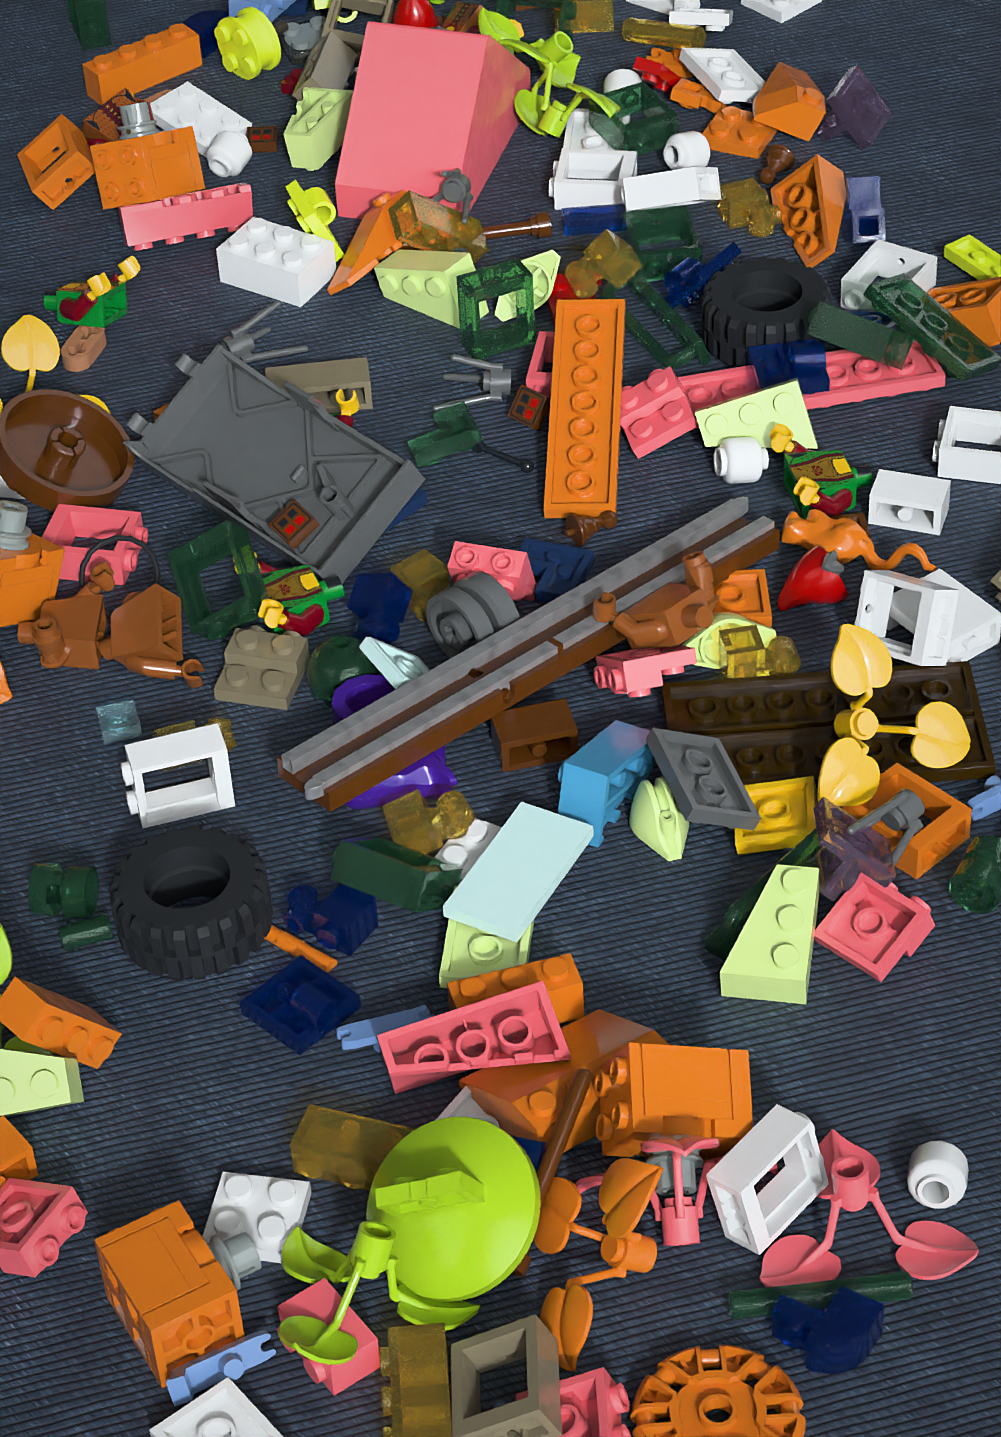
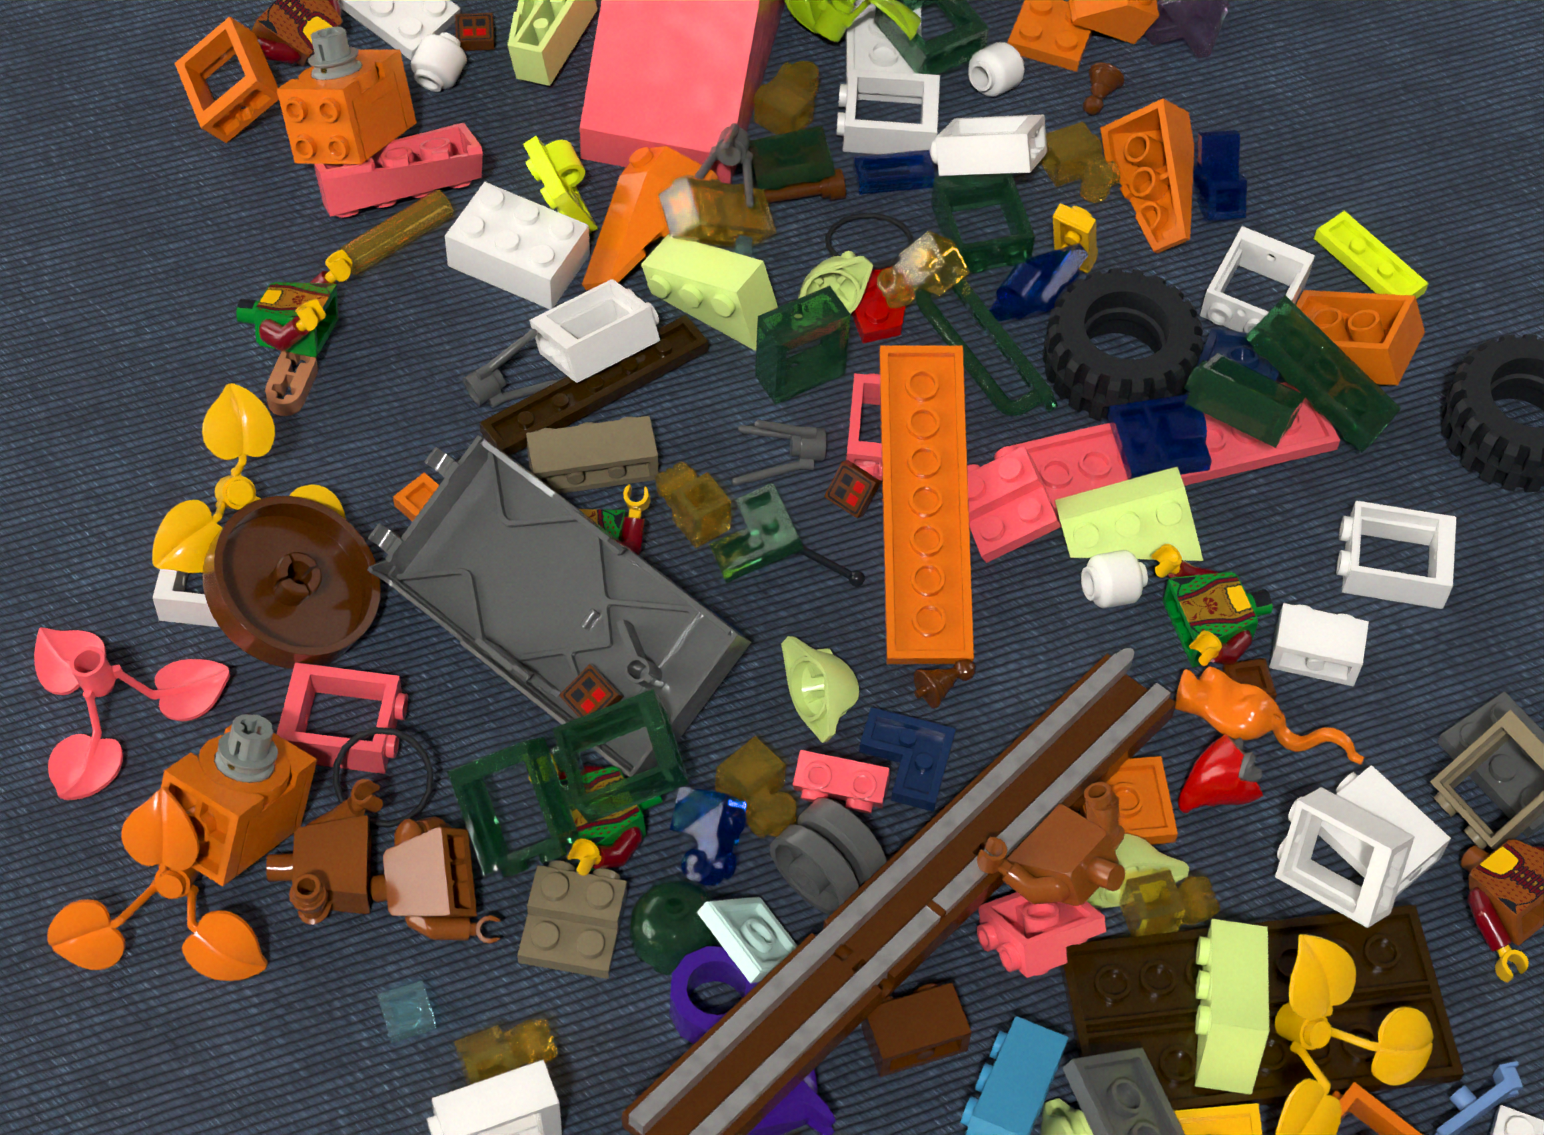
camera: 10 degrees left, 15 degrees up
(179, 256) = (398, 231): none -> clear yellow piece
(299, 529) = (608, 724): none -> clear green window
(331, 307) = (595, 330): none -> white window
(346, 339) = (570, 401): none -> dark brown plate
(398, 413) = (696, 503): none -> clear yellow brick
(484, 520) = (819, 686): none -> yellowish green hat
(511, 174) = (788, 99): none -> clear yellow brick
(516, 204) = (791, 158): none -> clear green plate
(730, 227) = (1074, 227): none -> yellow hinge
(793, 711) = (1233, 1005): none -> yellowish green wedge

